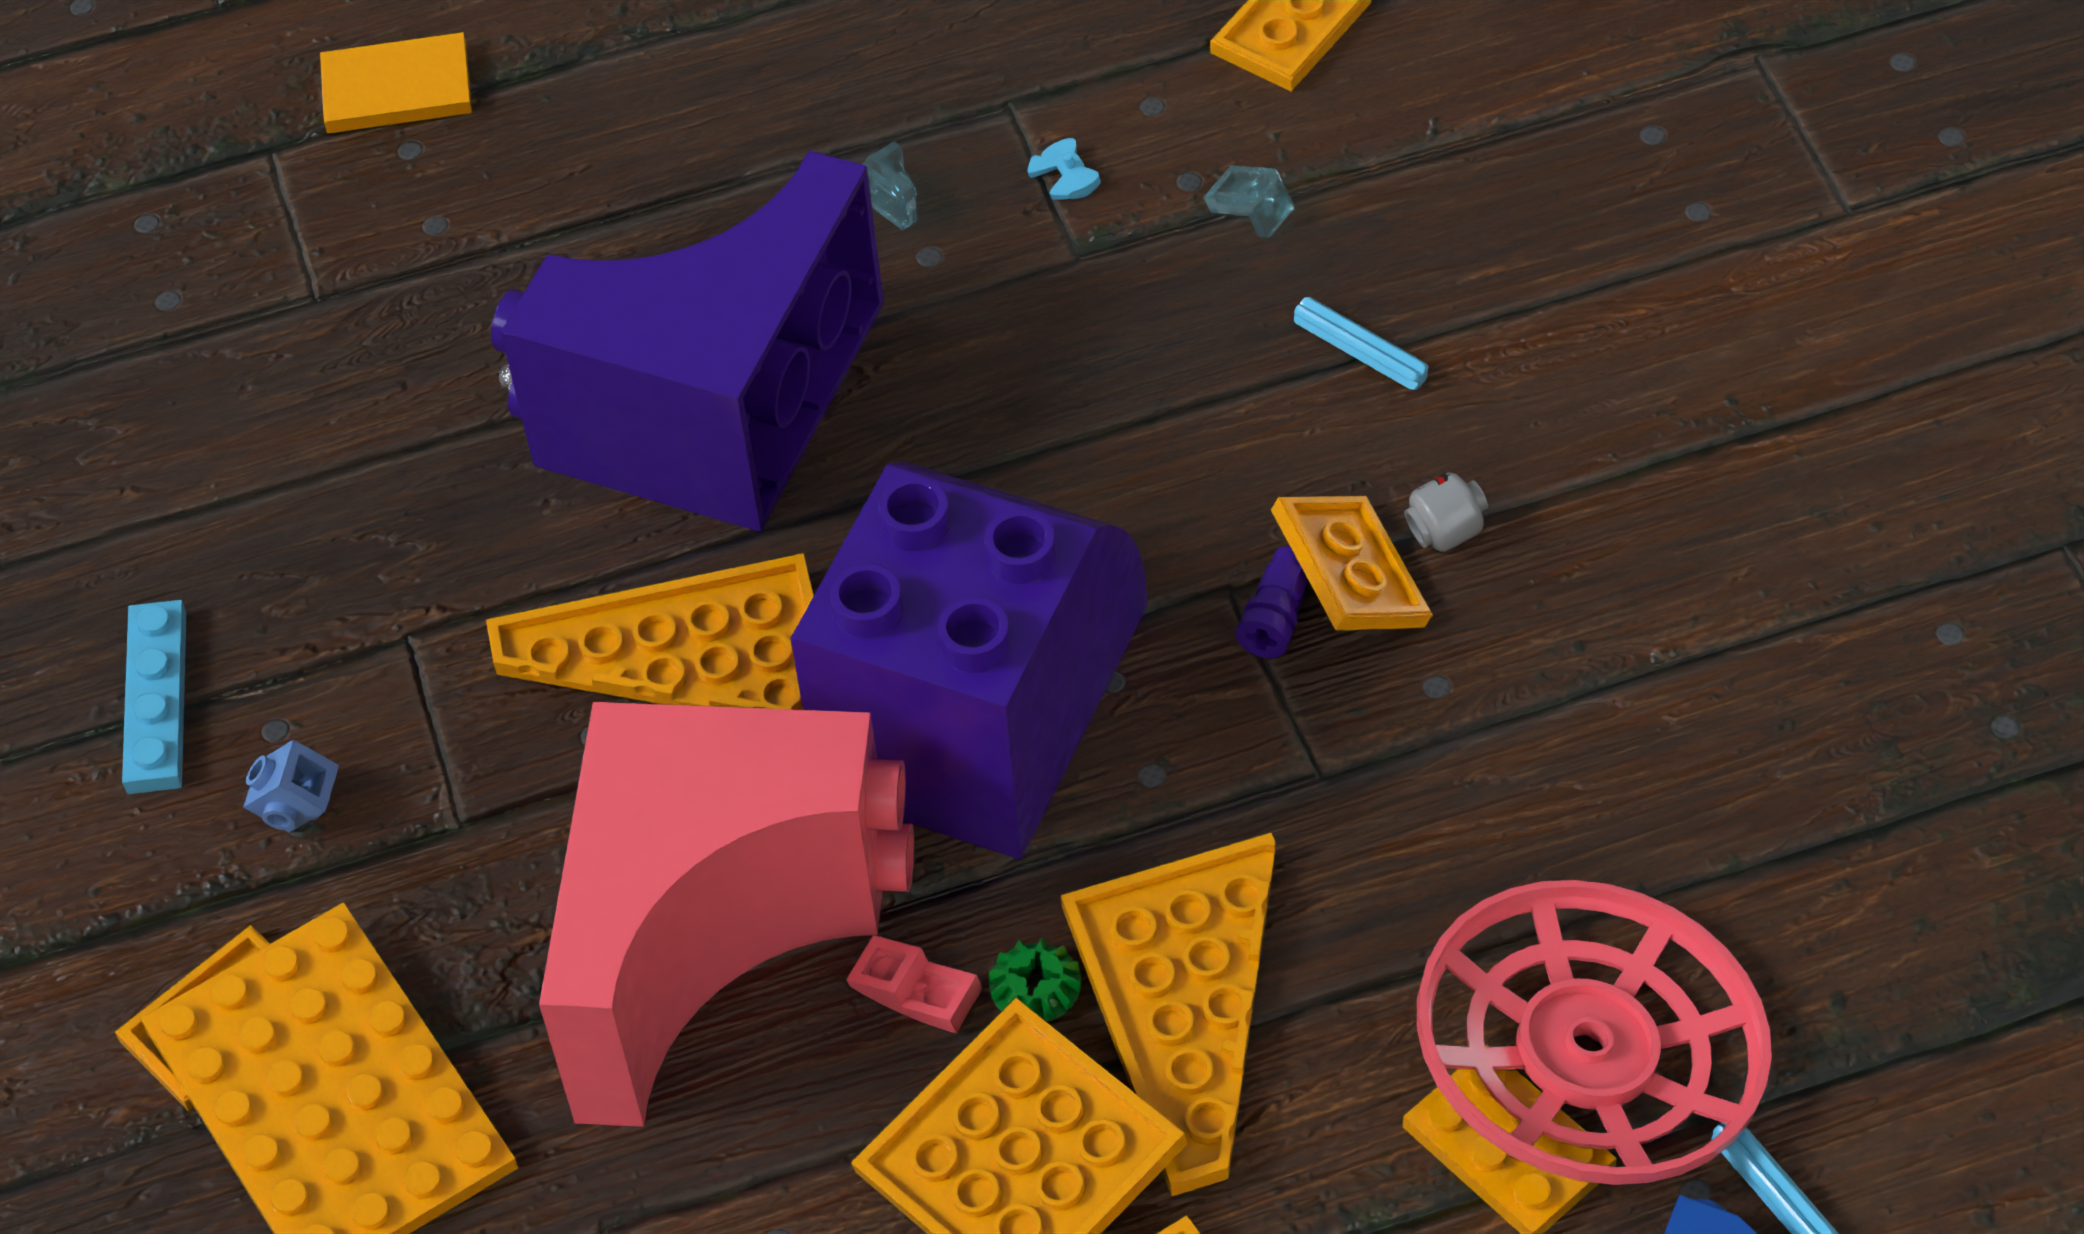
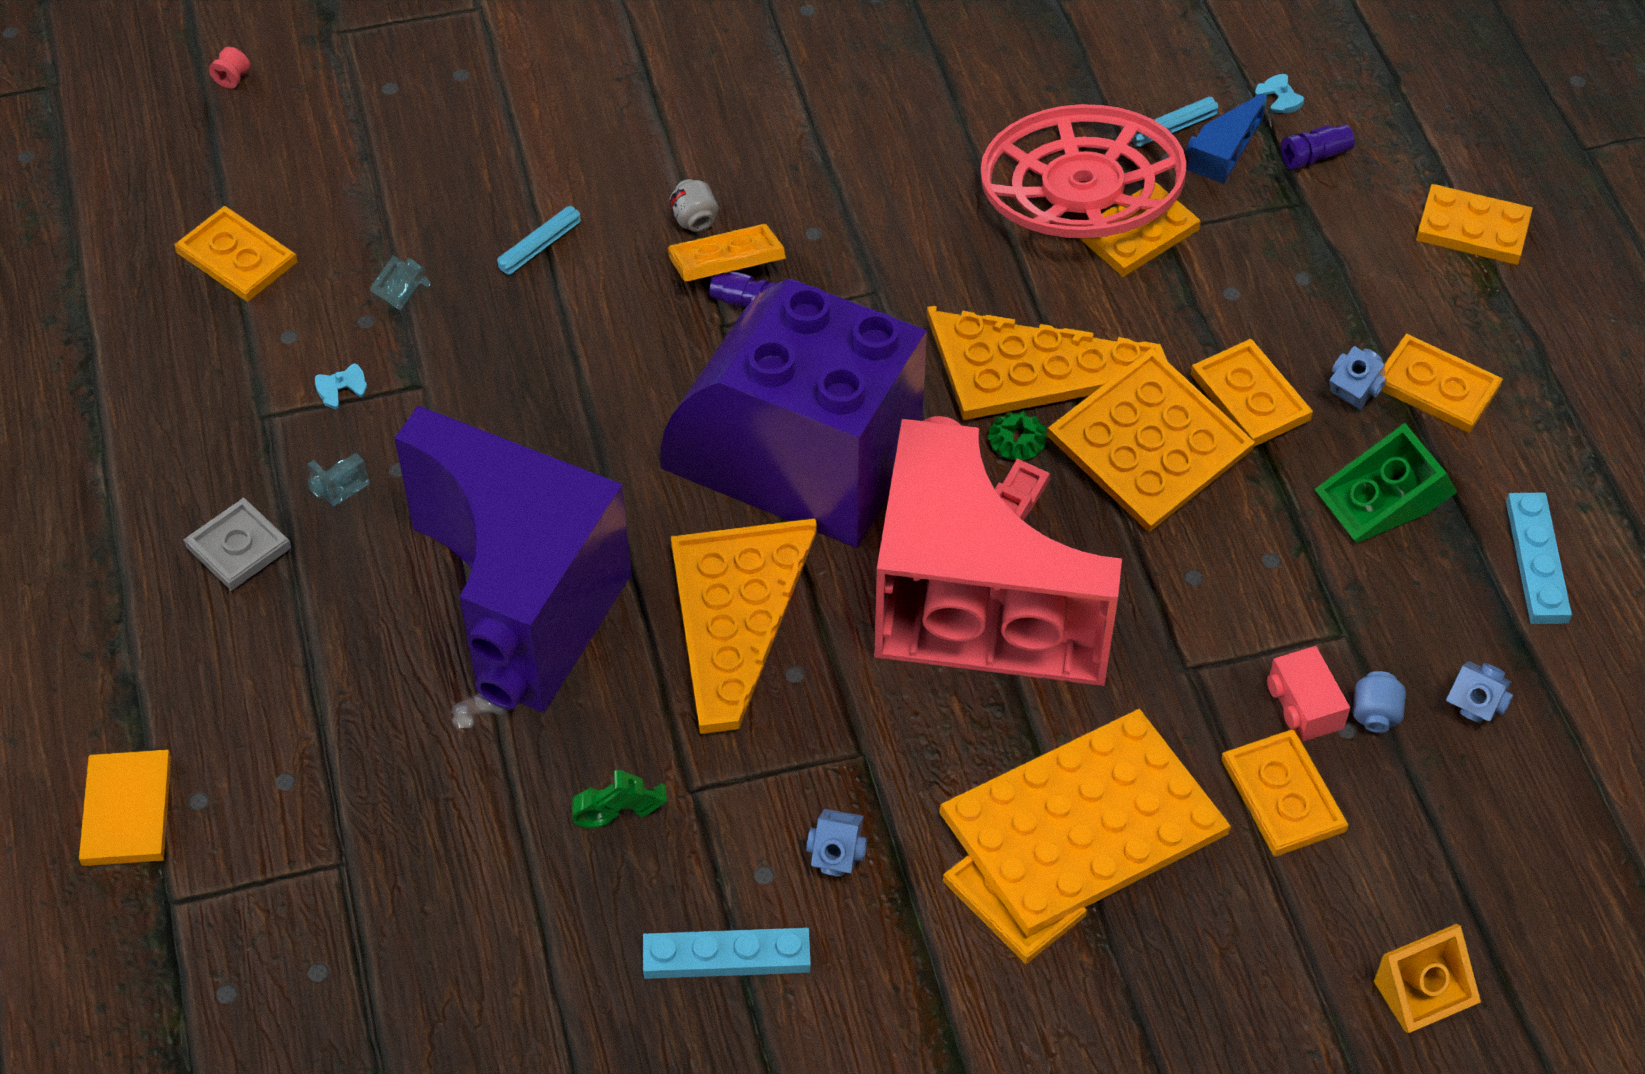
camera: 90 degrees left, 0 degrees up
(361, 533) = (599, 808): none -> green piece
(783, 108) = (237, 543): none -> light grey plate

